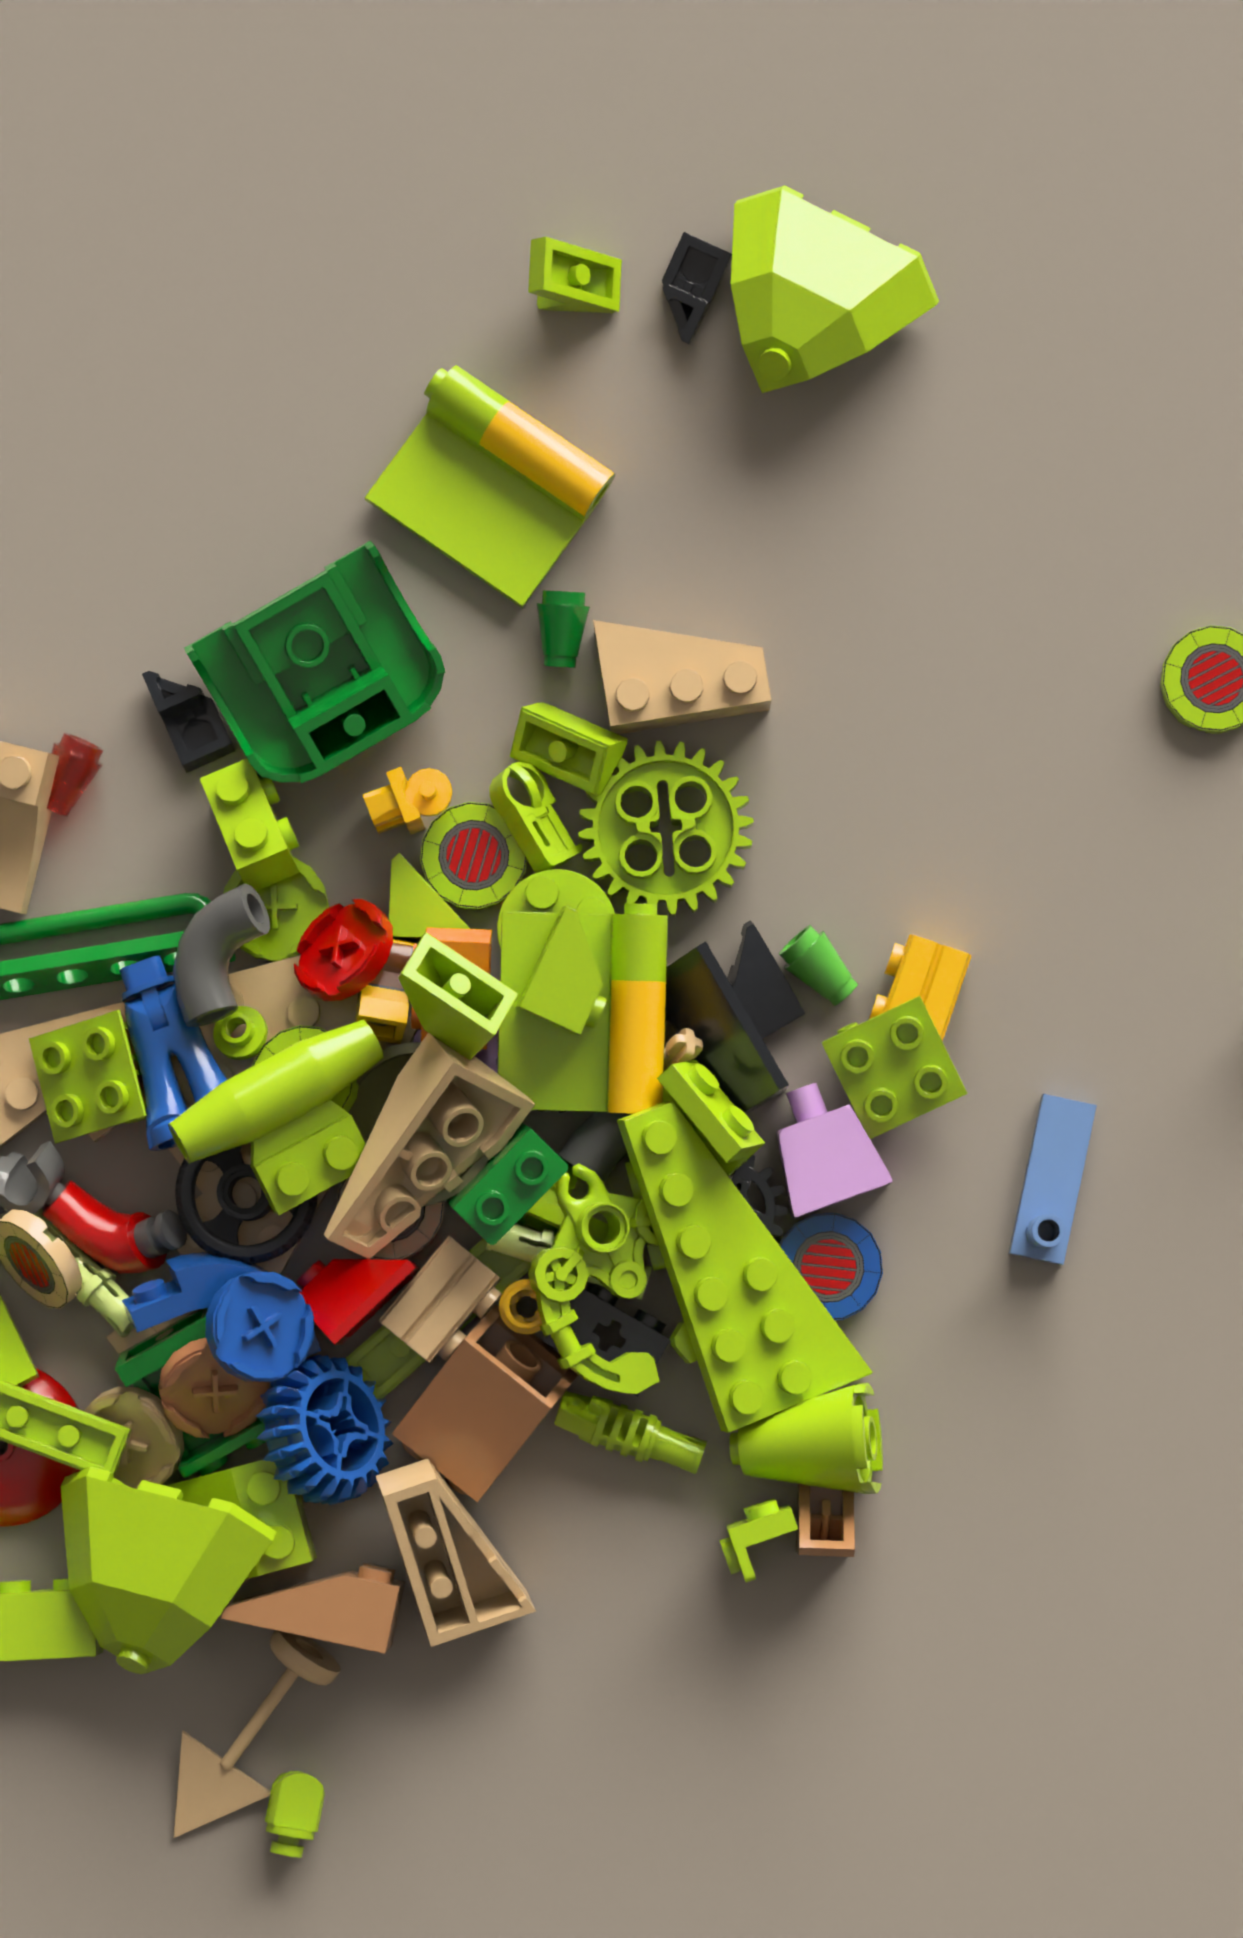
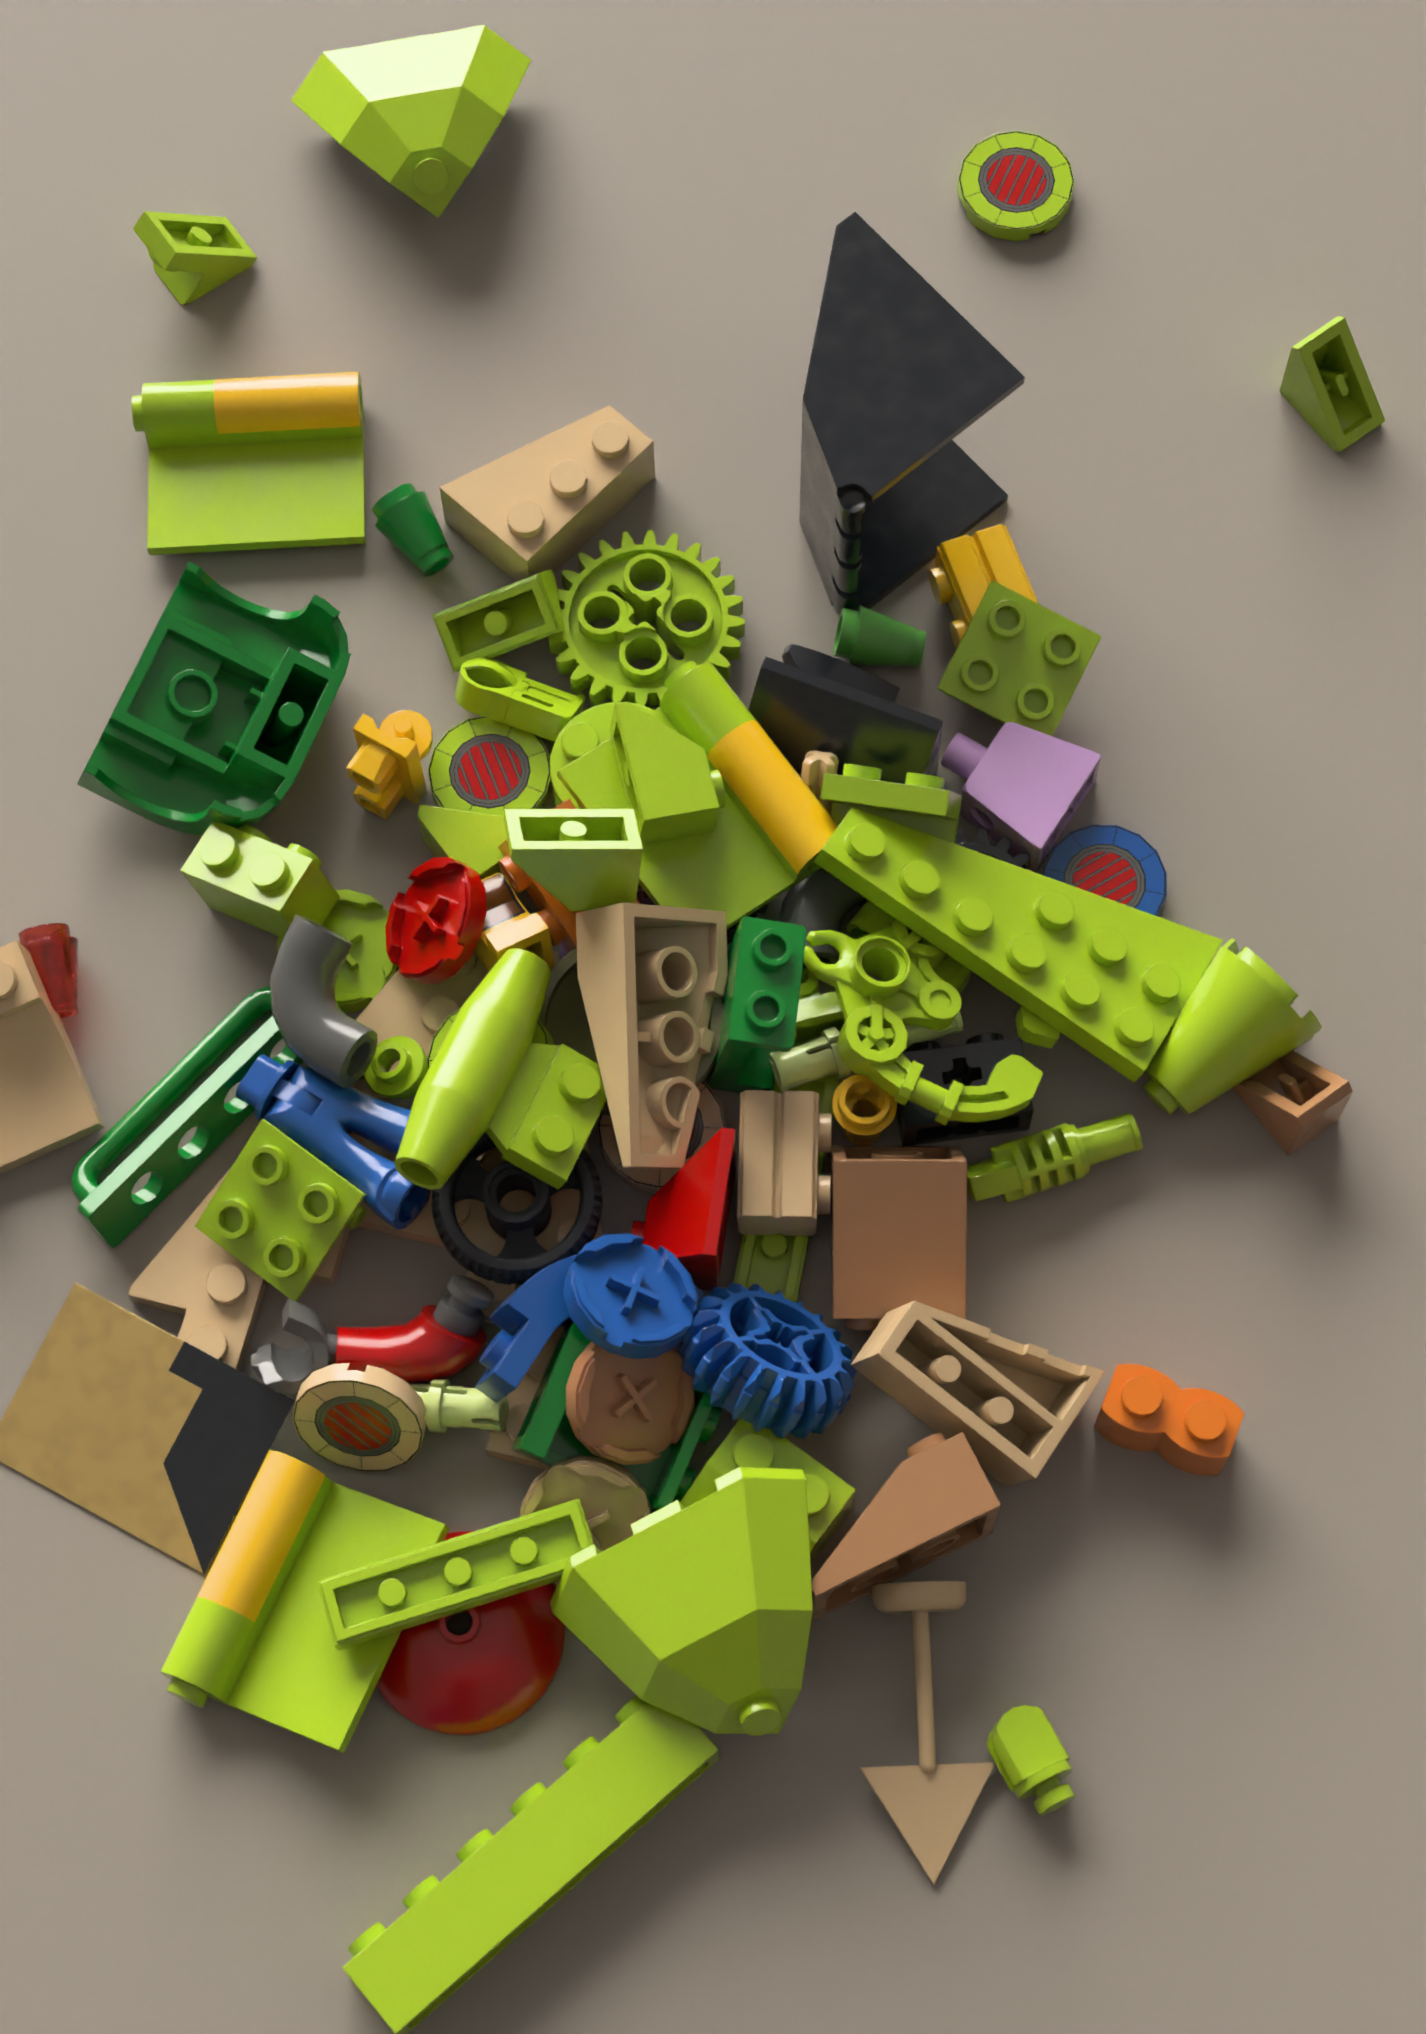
camera: 40 degrees left, 15 degrees down
(190, 721) = (131, 849): black slope -> none
(565, 1682) = (1185, 1425): none -> orange brick
(693, 282) = (303, 188): black slope -> none
(761, 1523) = (1241, 1171): lime bracket -> none
(934, 830) = (880, 406): none -> black windscreen
(1052, 1179) = (1235, 670): medium blue piece -> none

